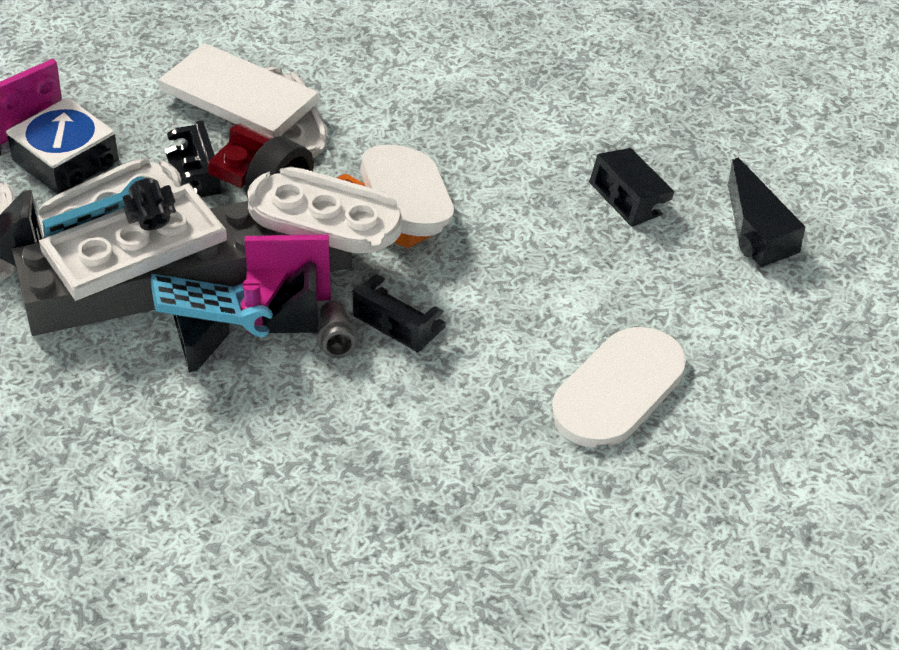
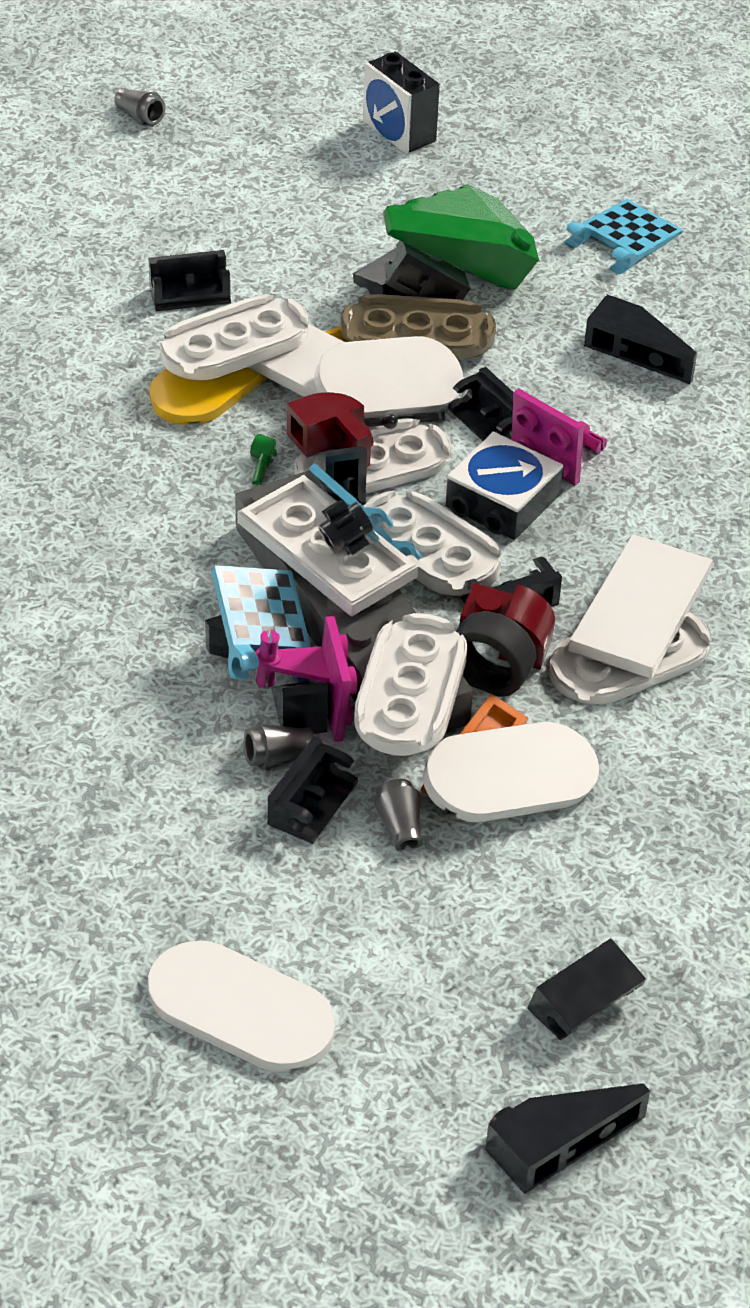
camera: 80 degrees right, 0 degrees up
(432, 262) = (400, 812): none -> flat silver cone

